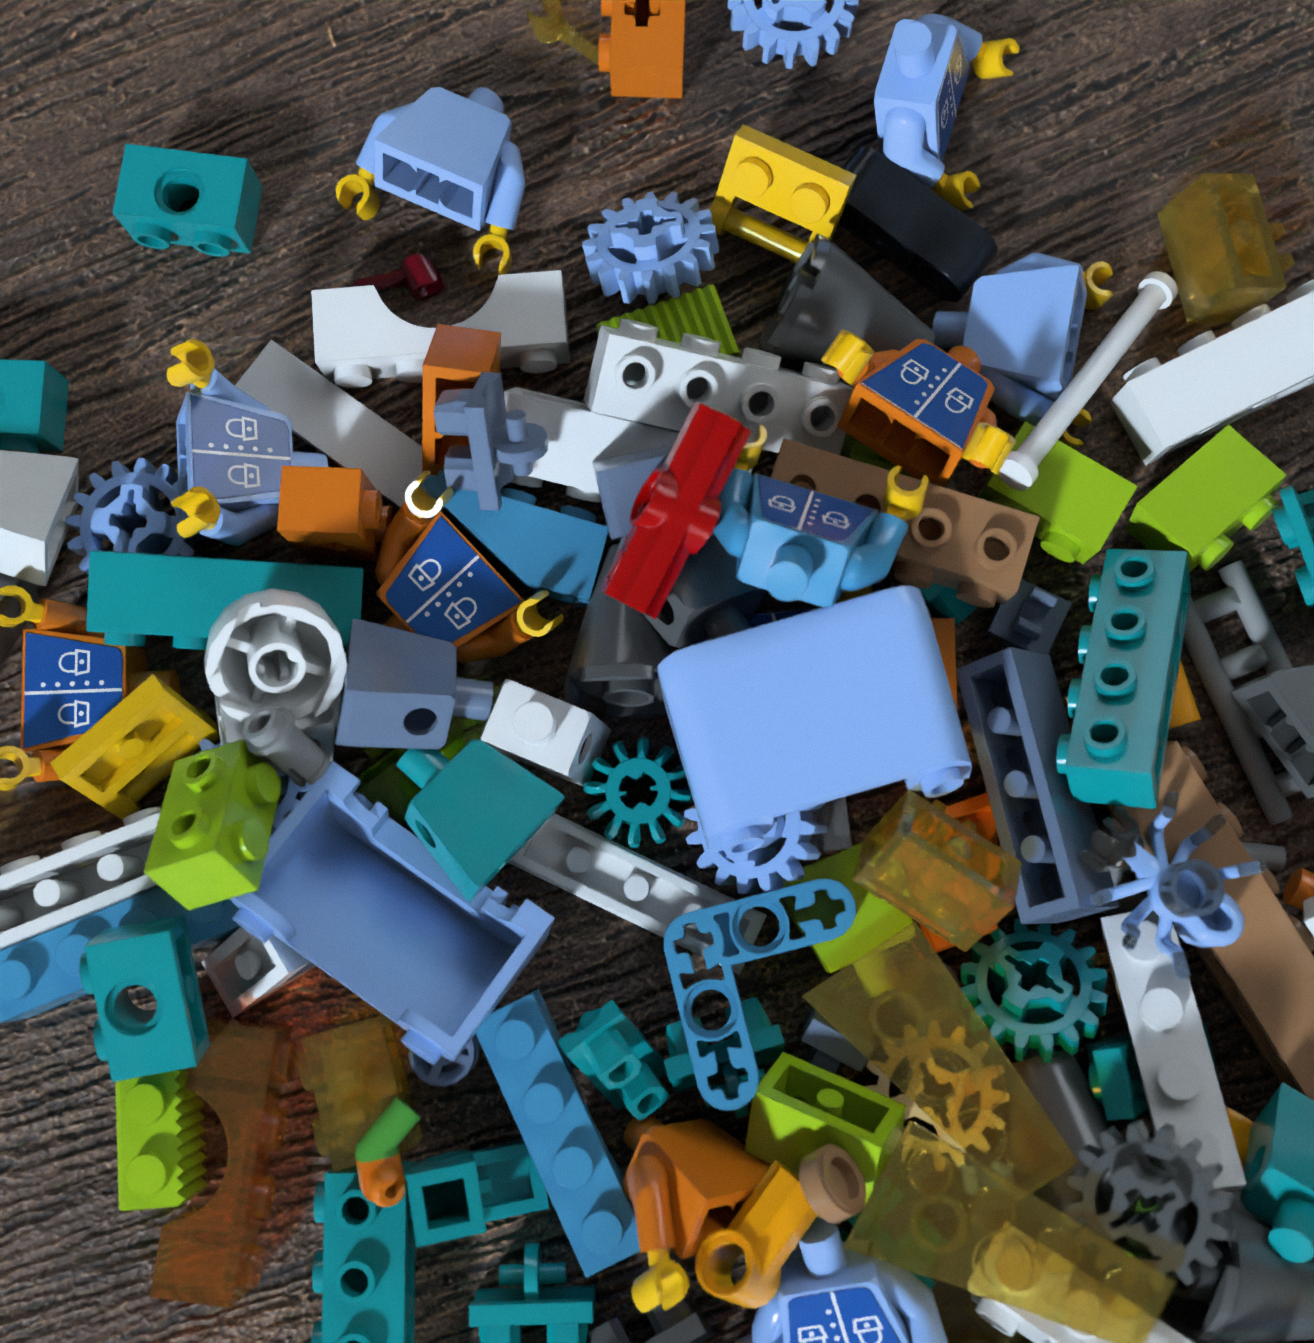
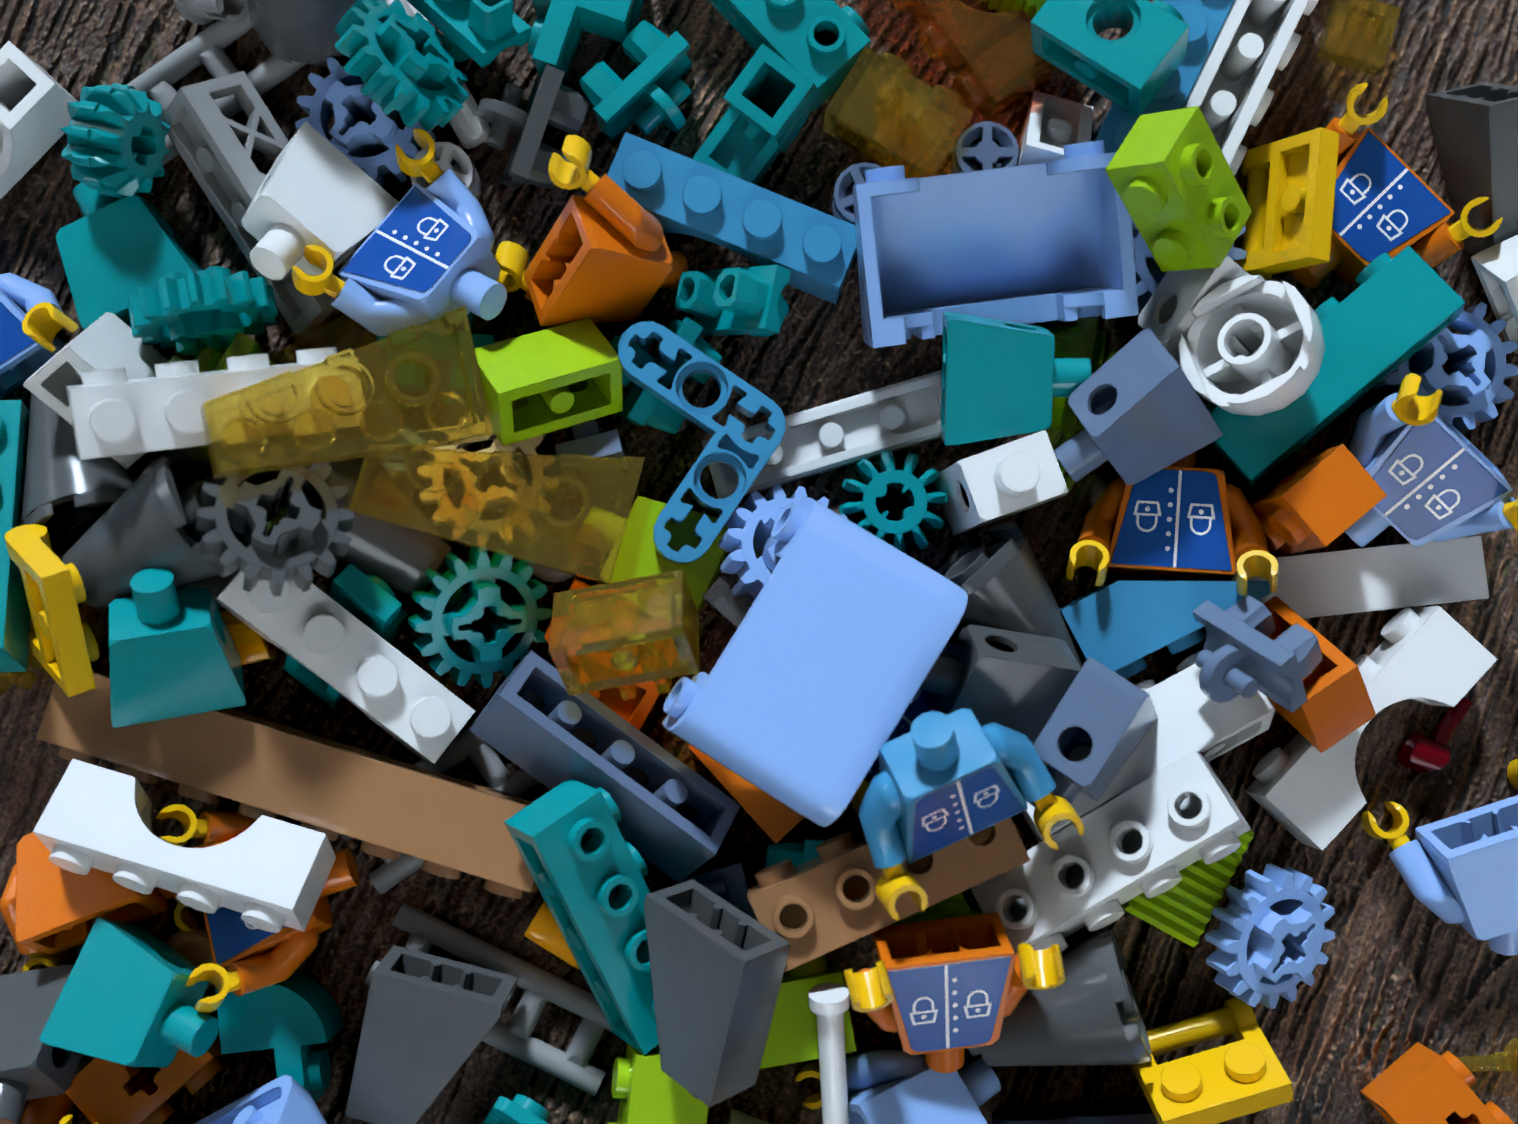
camera: 135 degrees right, 5 degrees up
(274, 735) = (1197, 291): light grey pin -> none
(314, 1006) = (986, 144): none -> sand blue wheel
(379, 1154) = (845, 83): arm -> none
(676, 510) = (1062, 717): red piece -> none
(765, 1232) = (529, 264): light orange piece -> none
(832, 1183) = (510, 339): medium nougat tile -> none
(1099, 553) = (711, 989): none -> dark grey slope
(1181, 893) = (436, 772): animal -> none

